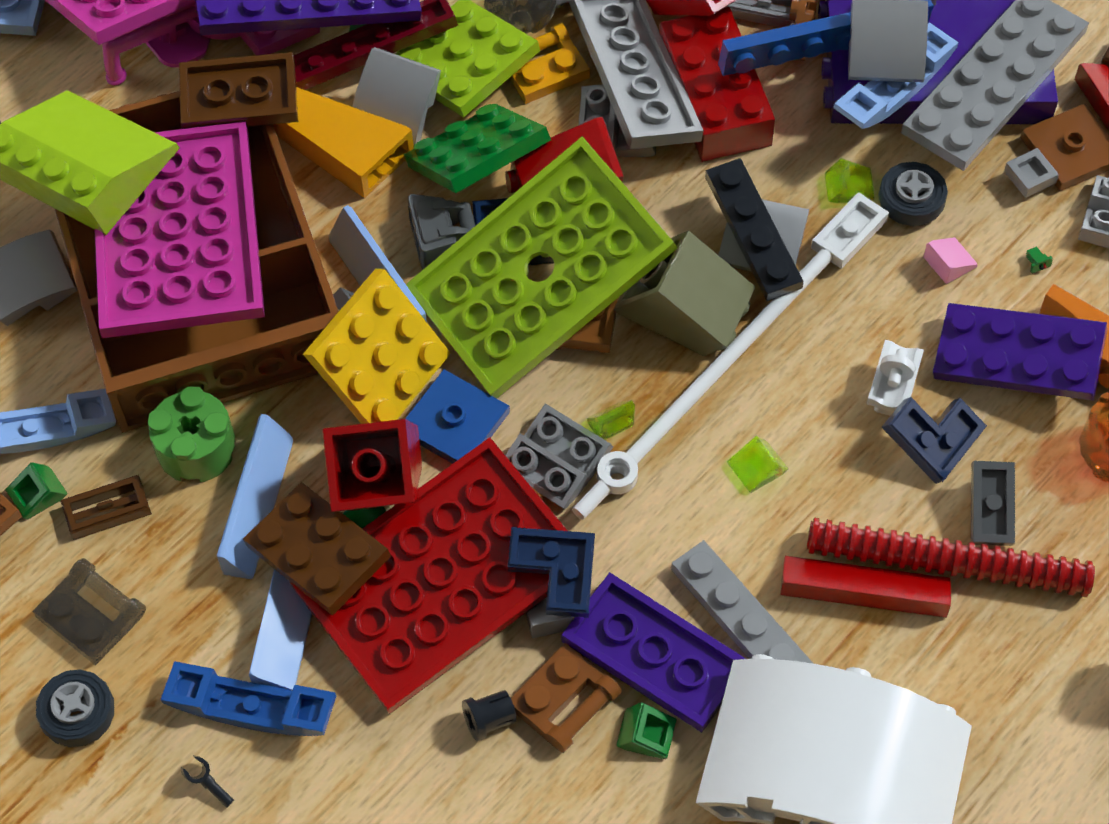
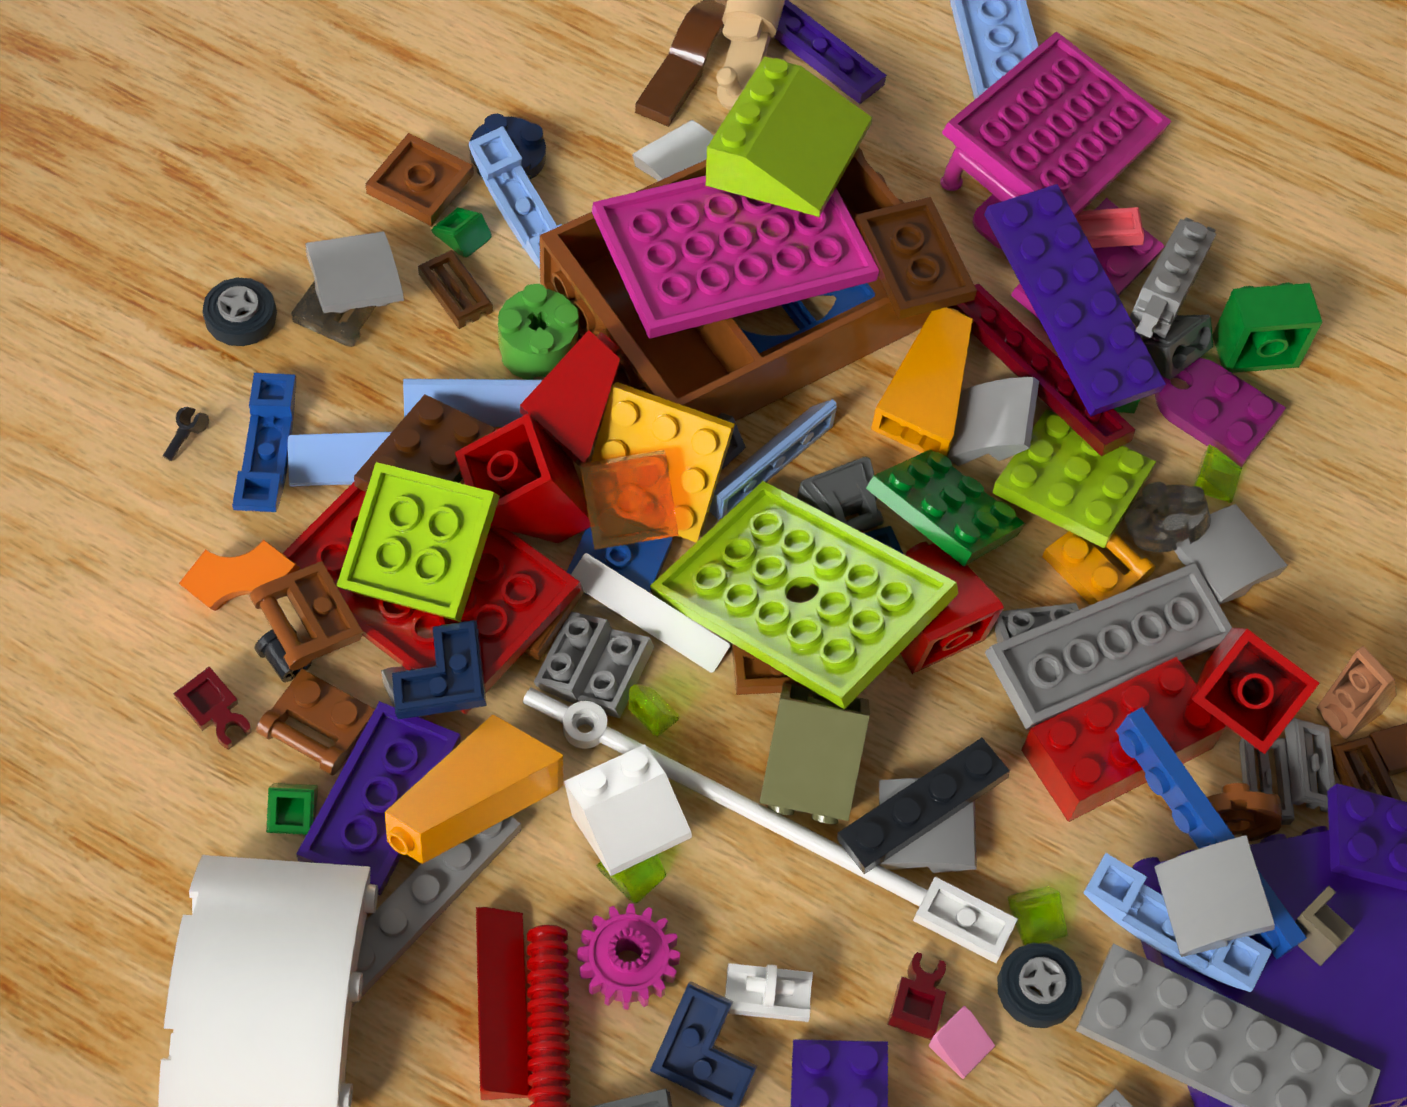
camera: 70 degrees right, 0 degrees up
(73, 583) = (354, 272): none -> light grey slope
(295, 397) = (575, 395): none -> red slope
(392, 761) = (220, 578): none -> orange tile
(414, 381) = (629, 499): none -> clear orange plate
(423, 557) = (418, 541): none -> lime plate
(462, 665) = (319, 609): none -> dark orange plate
(516, 401) = (650, 613): none -> white sticker
(528, 788) = (210, 702): none -> dark red plate
(668, 558) = (473, 789): none -> light orange slope
(715, 448) = (627, 809): none -> white slope
(837, 495) = (627, 980): none -> dark pink gear
(913, 279) = (918, 1001): none -> dark red plate

